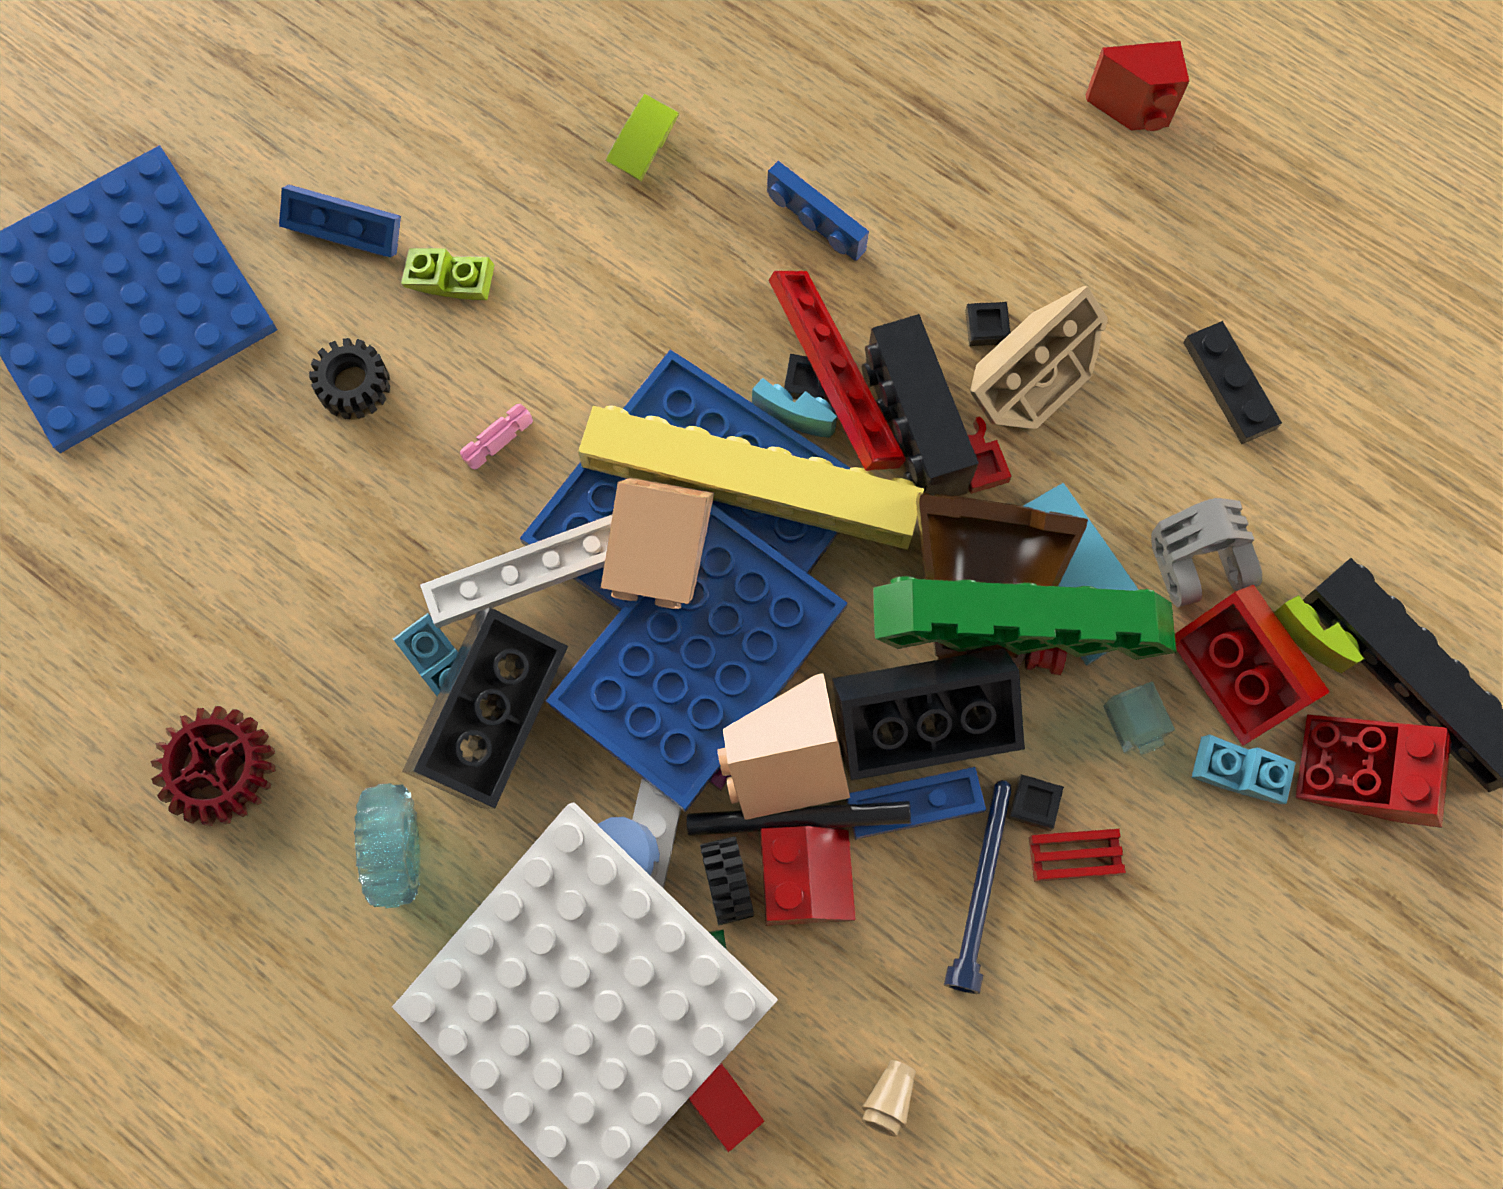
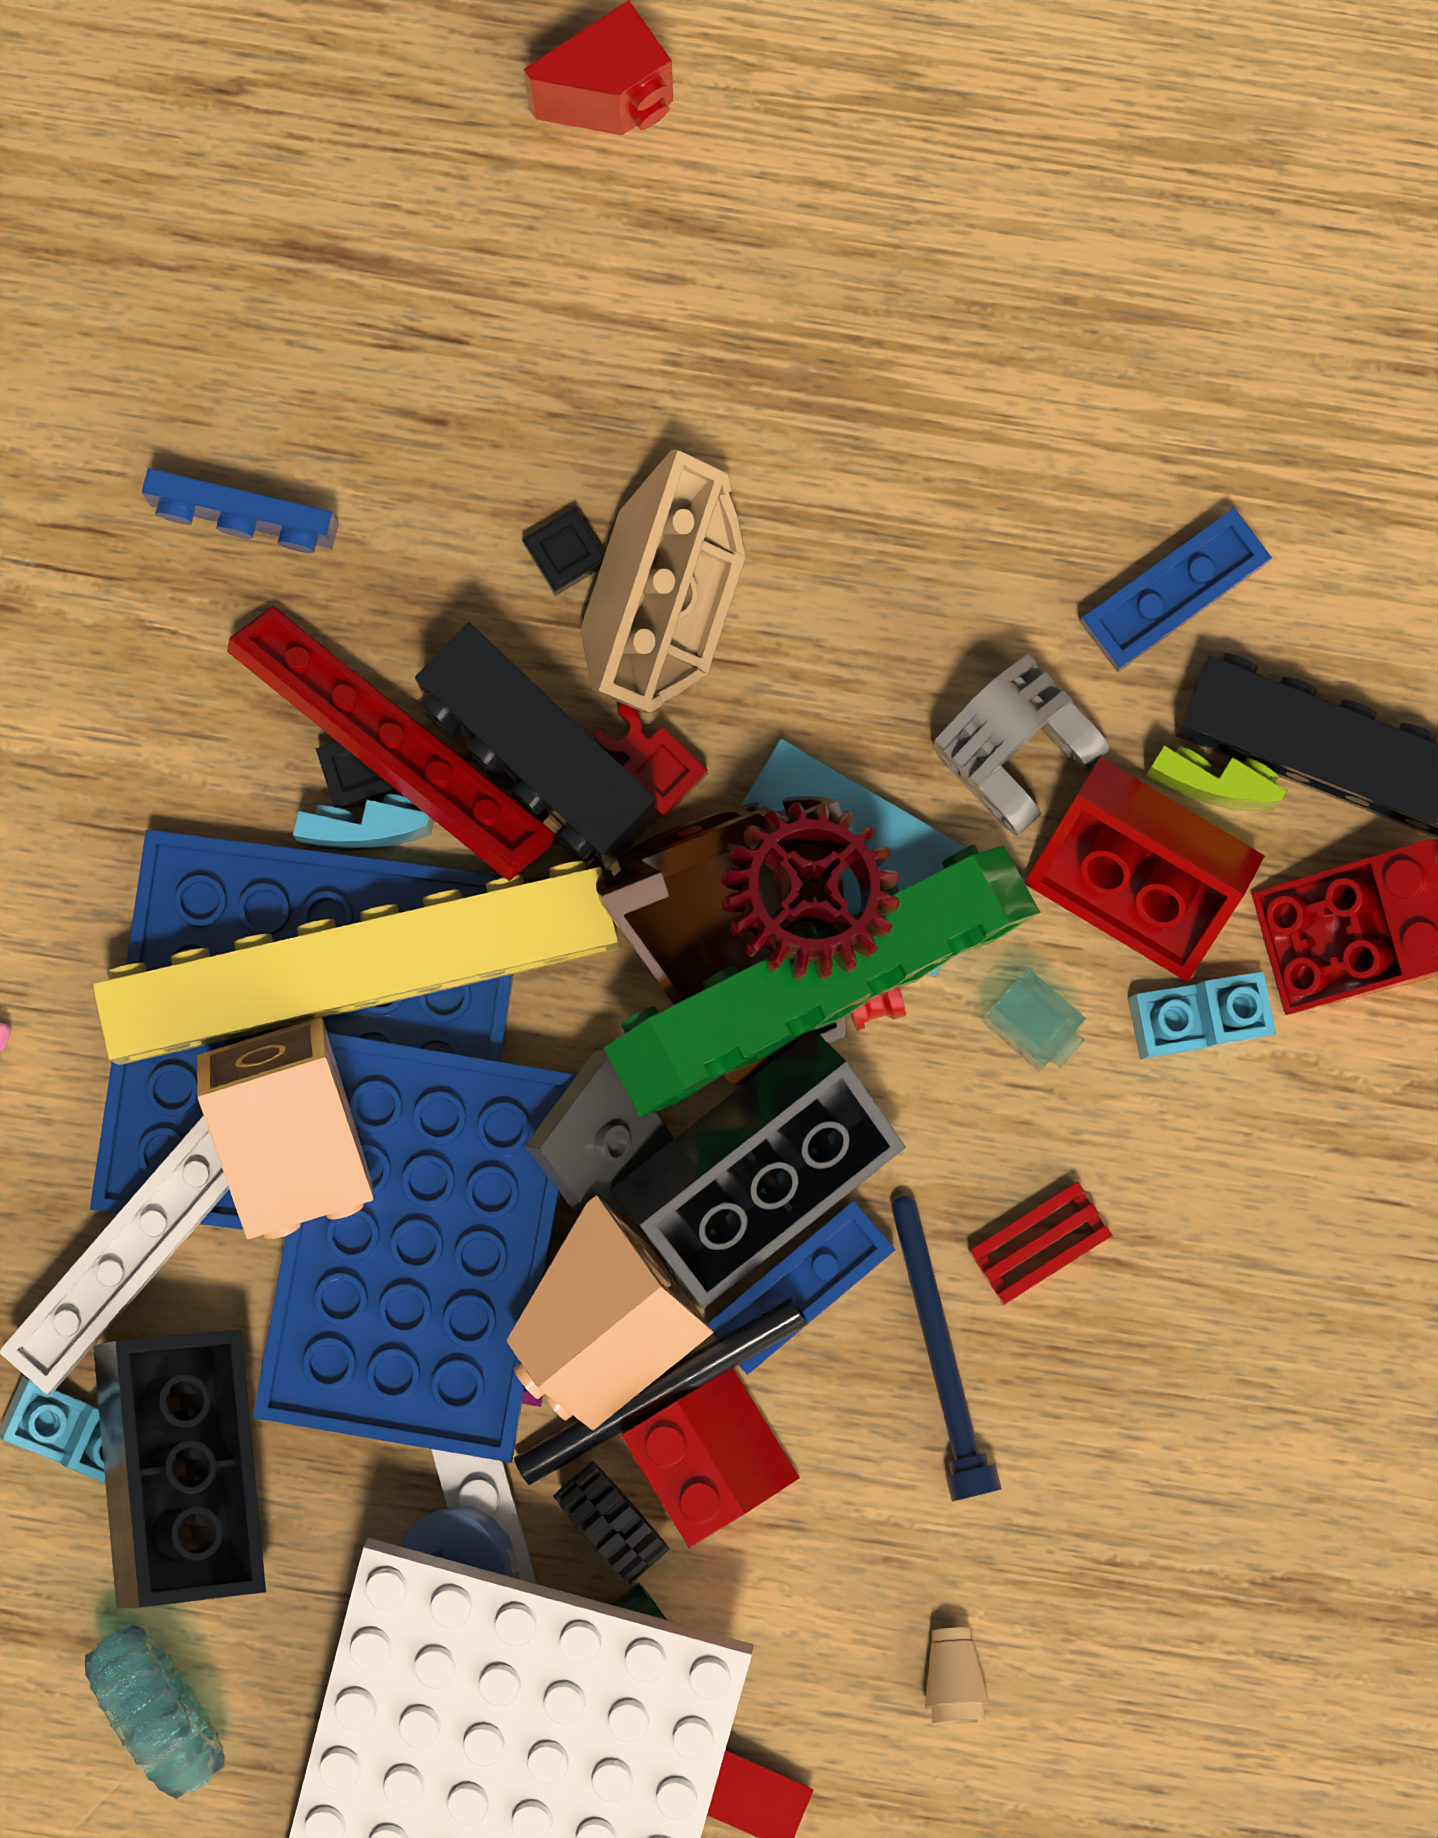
camera: 25 degrees left, 10 degrees up
(839, 641) = (595, 1136): none -> dark grey plate
(1036, 802) = (955, 1201): black tile -> none
(1037, 575) = (831, 910): none -> dark red gear
(1232, 382) = (942, 463): black plate -> none
(1342, 516) = (1175, 590): none -> blue plate

